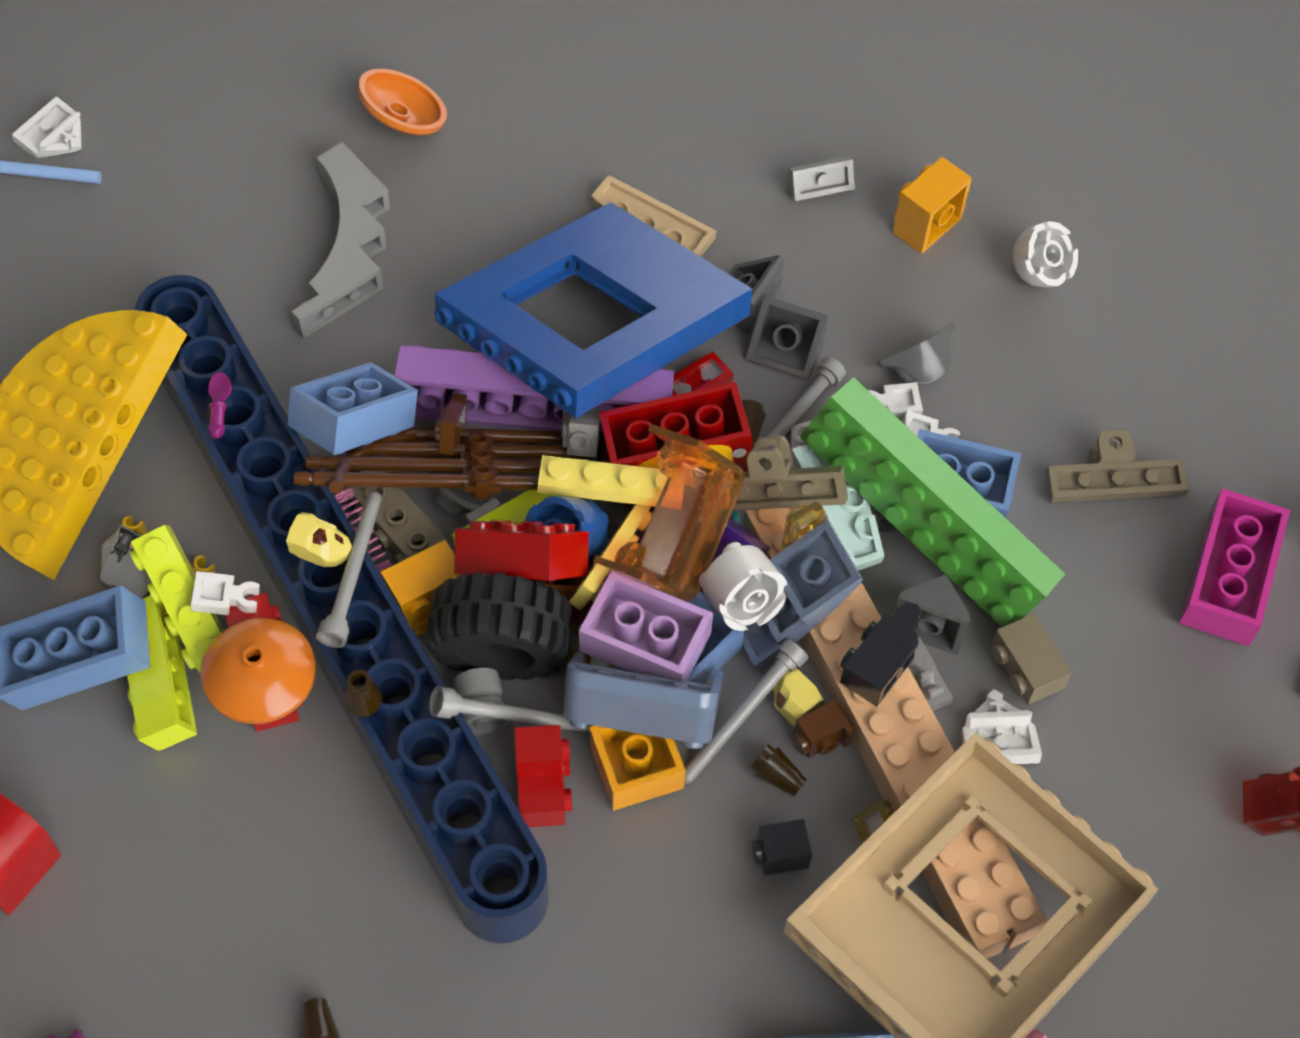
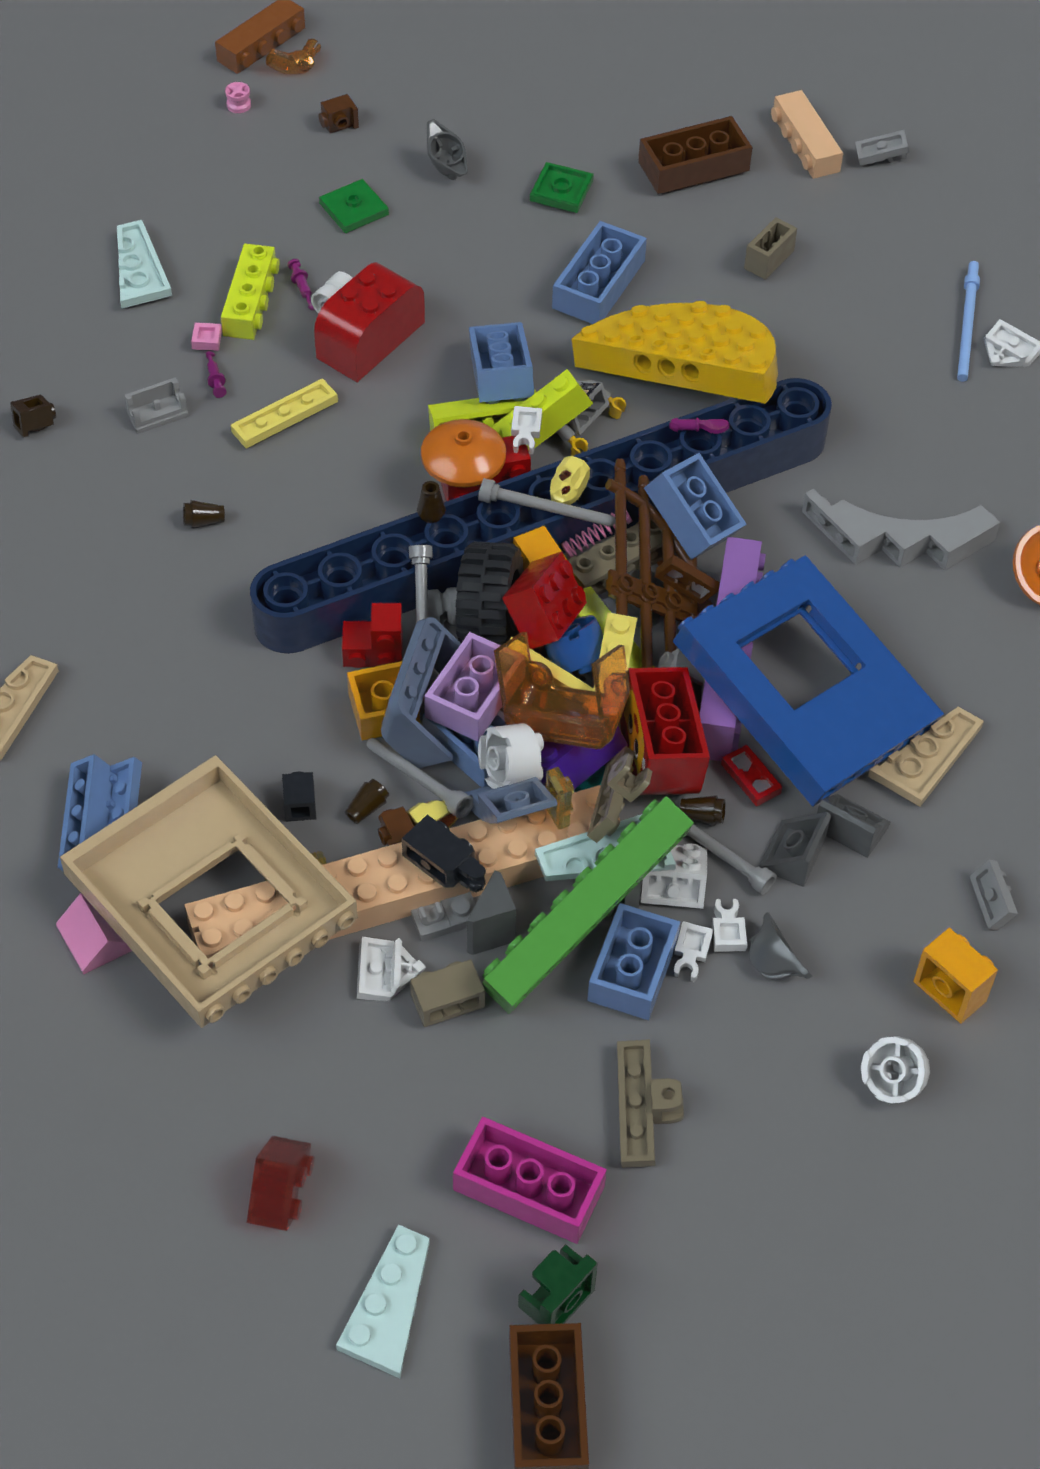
camera: 95 degrees right, 5 degrees down
(128, 941) = (284, 413): none -> light yellow plate

